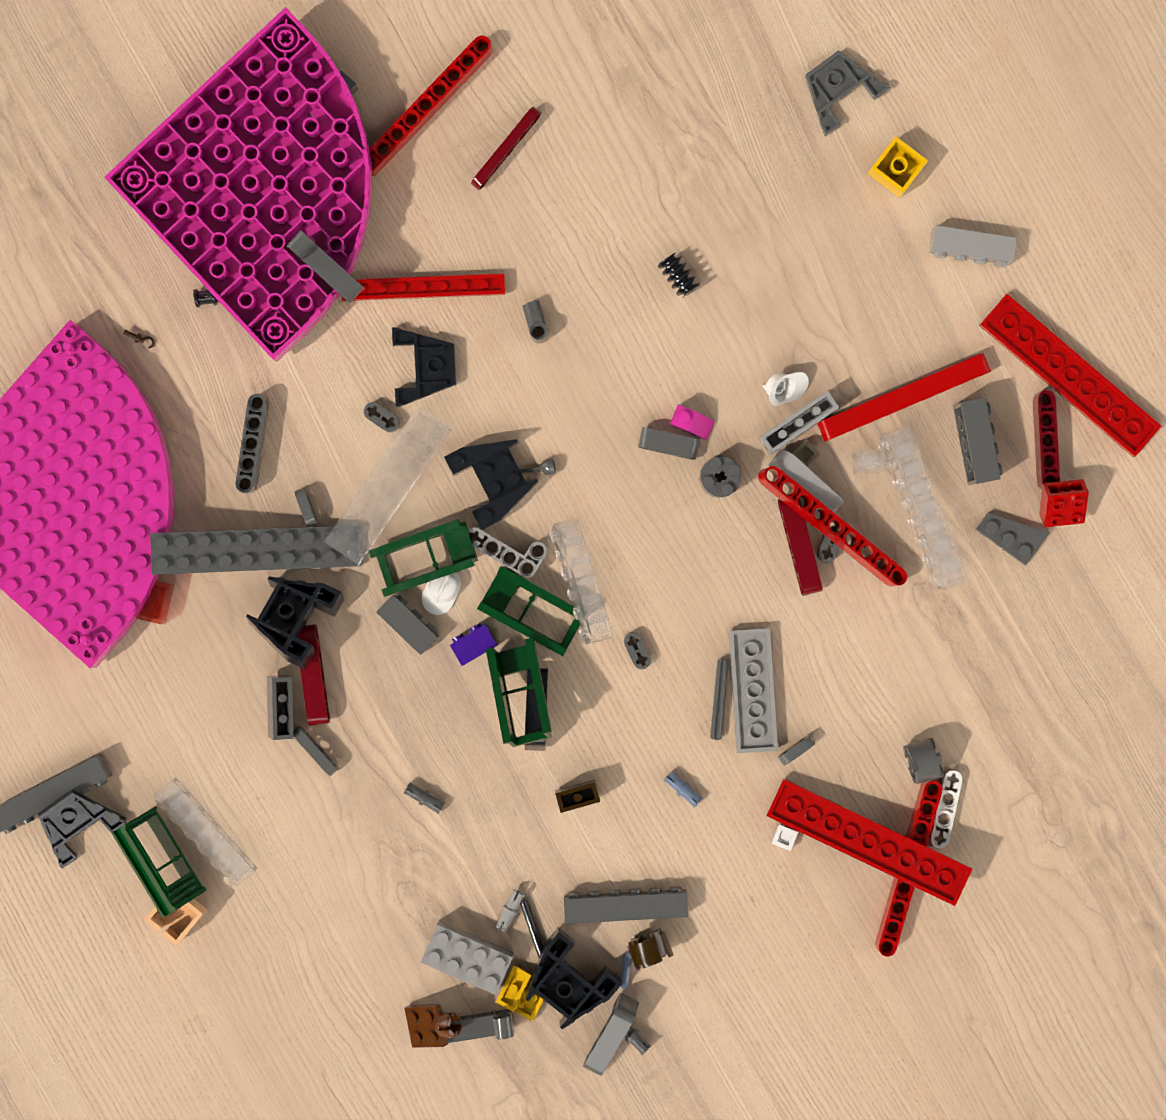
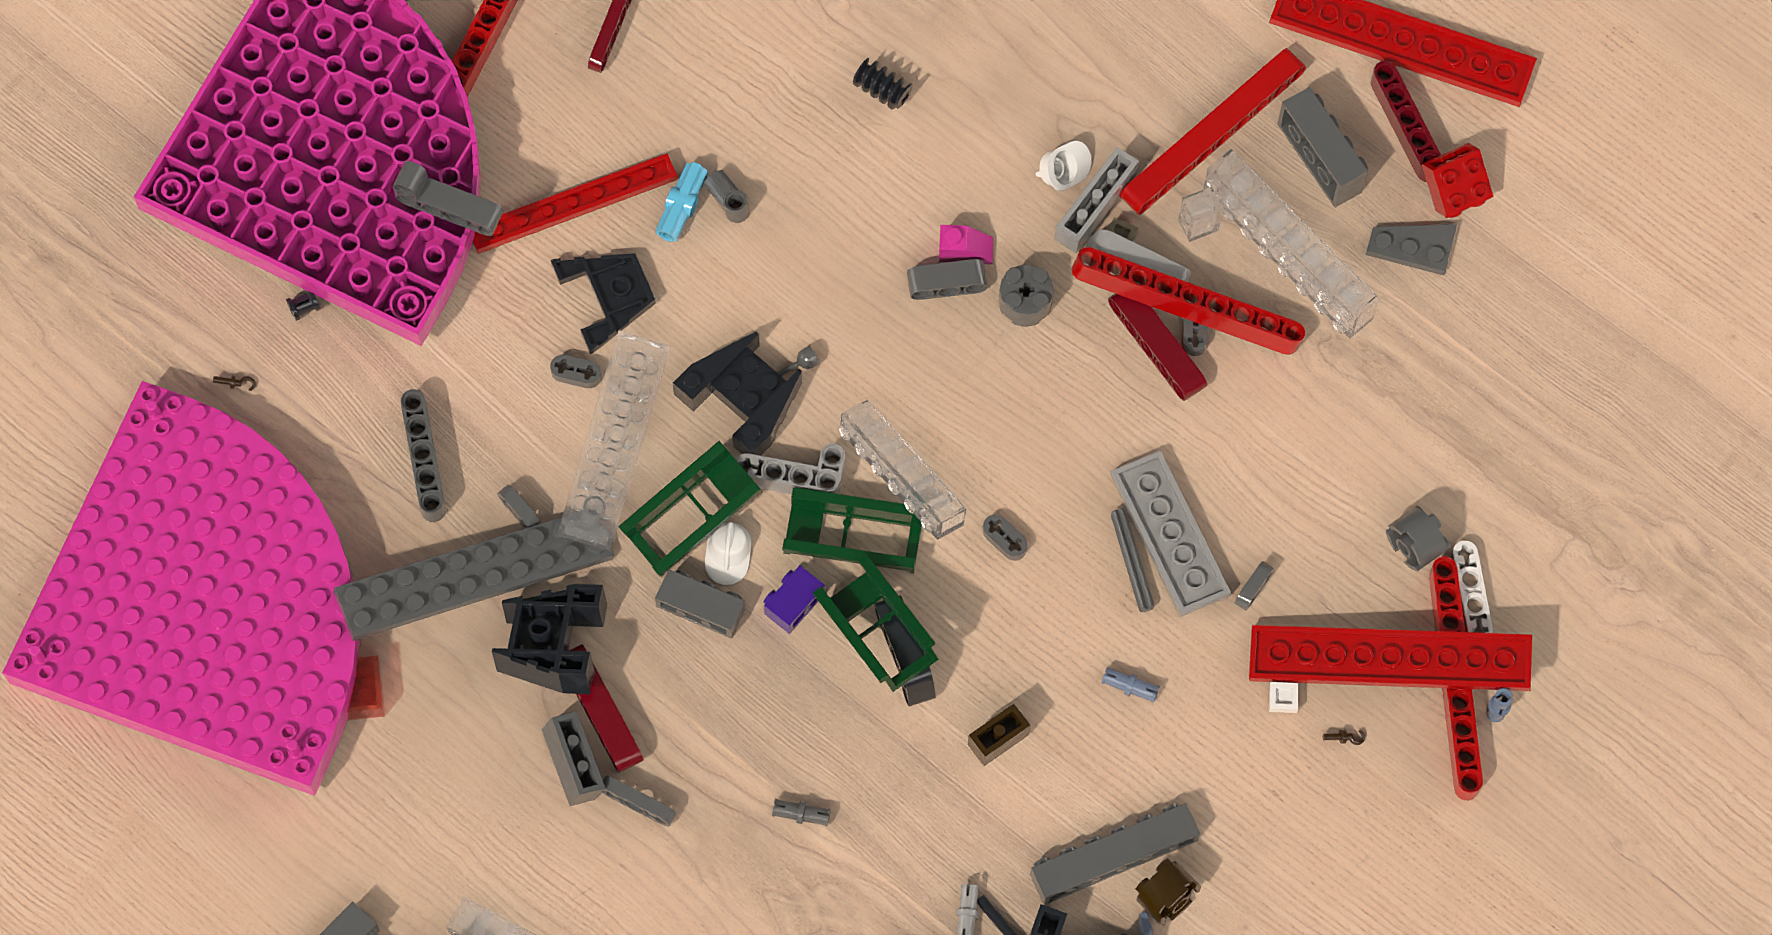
camera: 20 degrees left, 20 degrees down
(501, 314) = (681, 202): none -> medium azure piece
(814, 878) = (1343, 736): none -> dark brown hand
(930, 902) = (1496, 705): none -> sand blue pin

